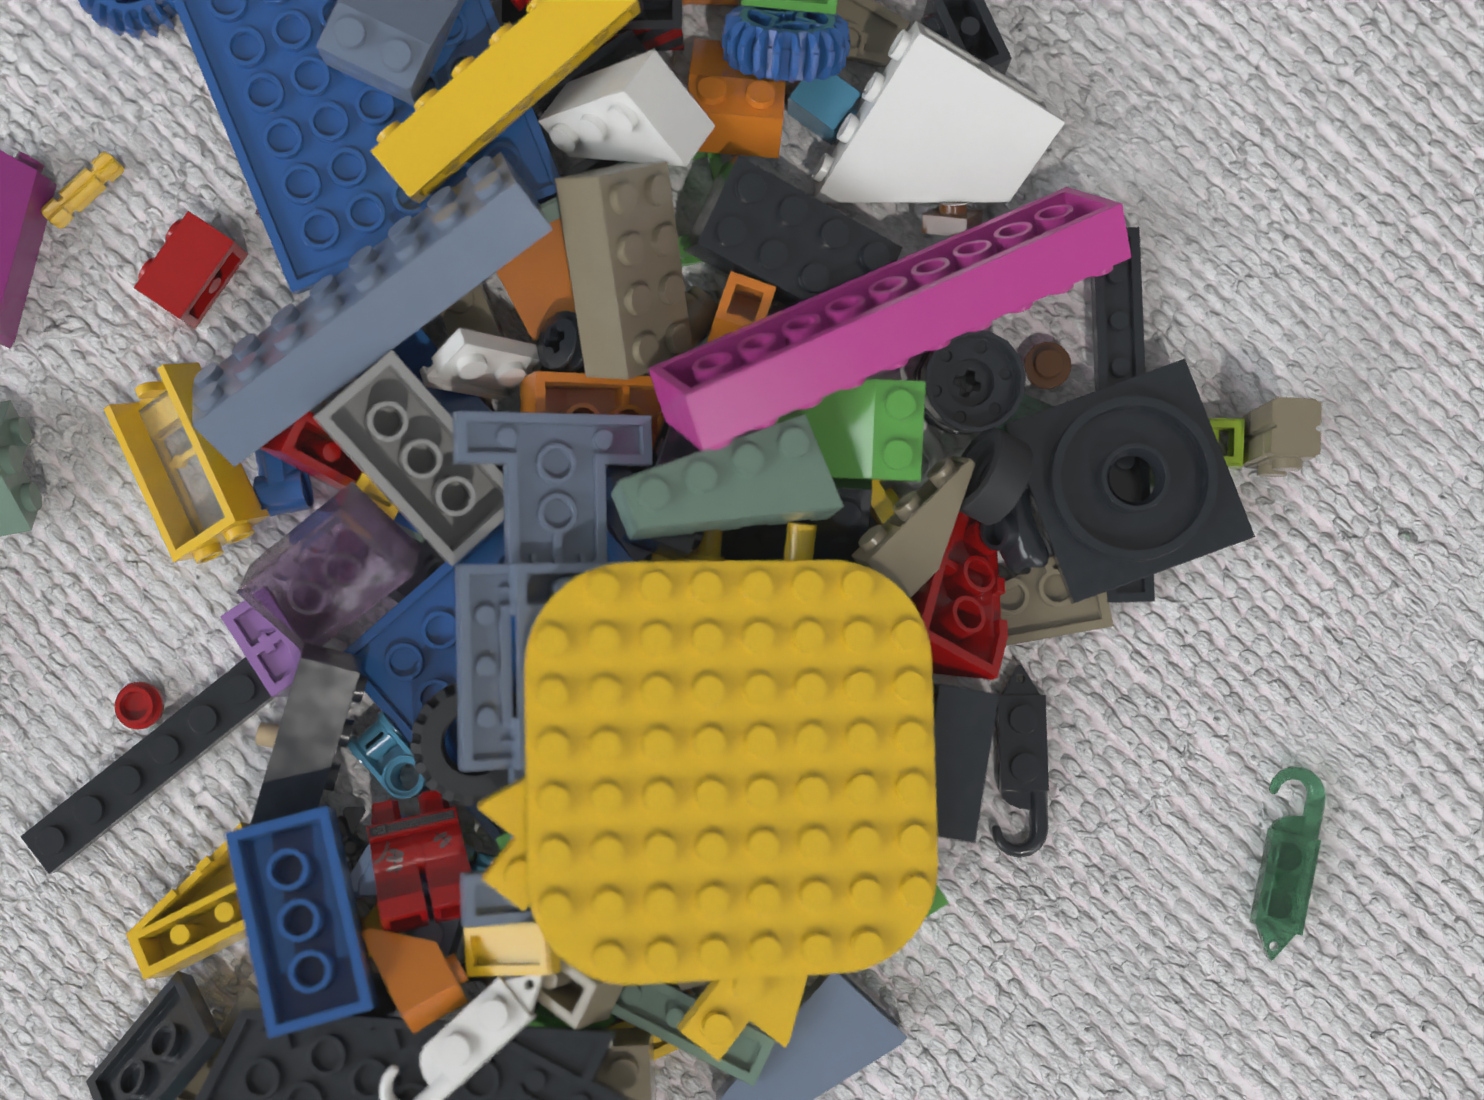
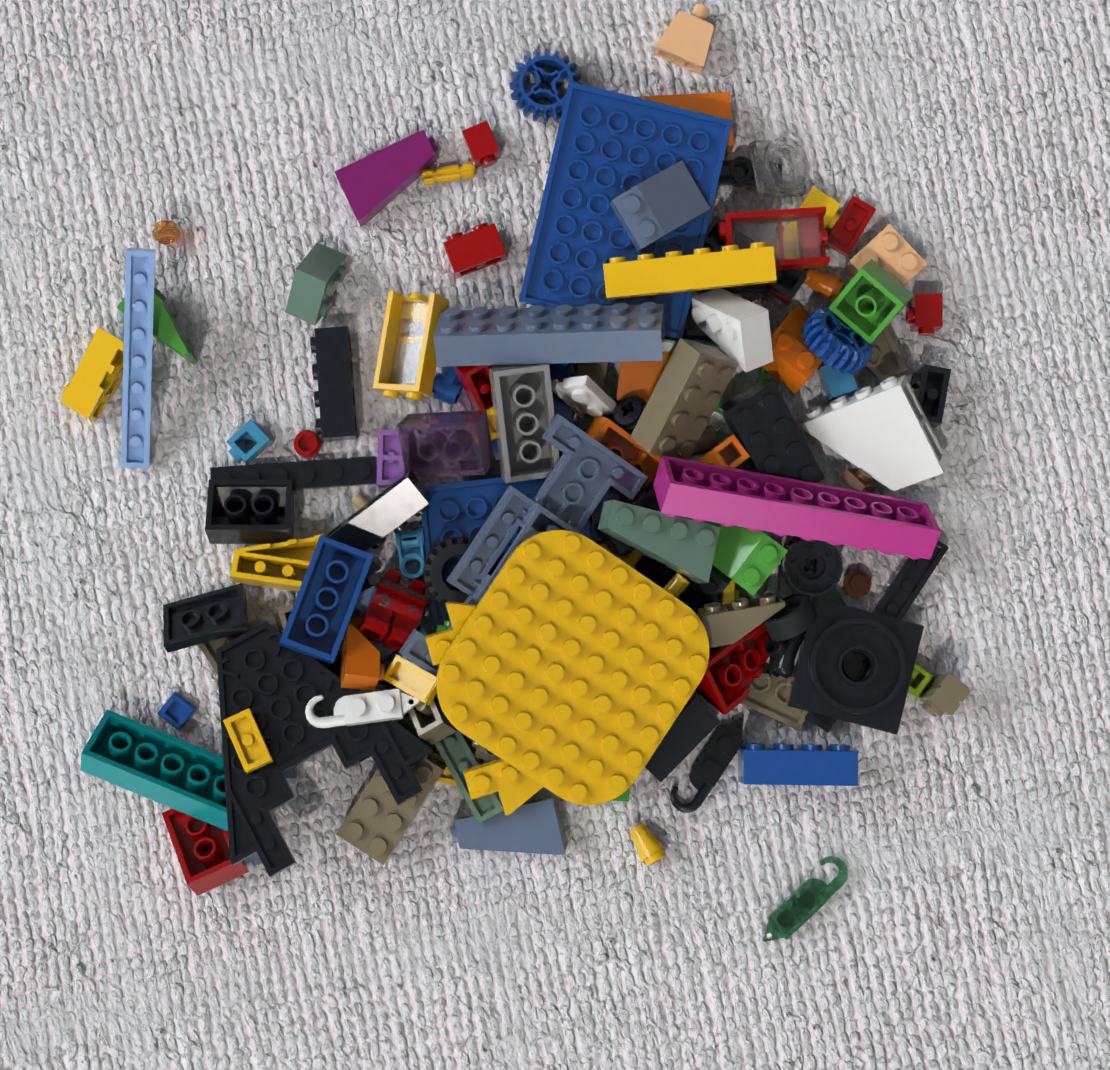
camera: 30 degrees right, 0 degrees up
(35, 762) = (248, 432): none -> dark azure brick
(99, 116) = (481, 145): none -> red brick
(115, 862) = (250, 511): none -> black slope
(118, 593) = (335, 384): none -> black brick
(1013, 938) = (647, 845): none -> yellow cone
(1150, 678) = (798, 766): none -> blue brick

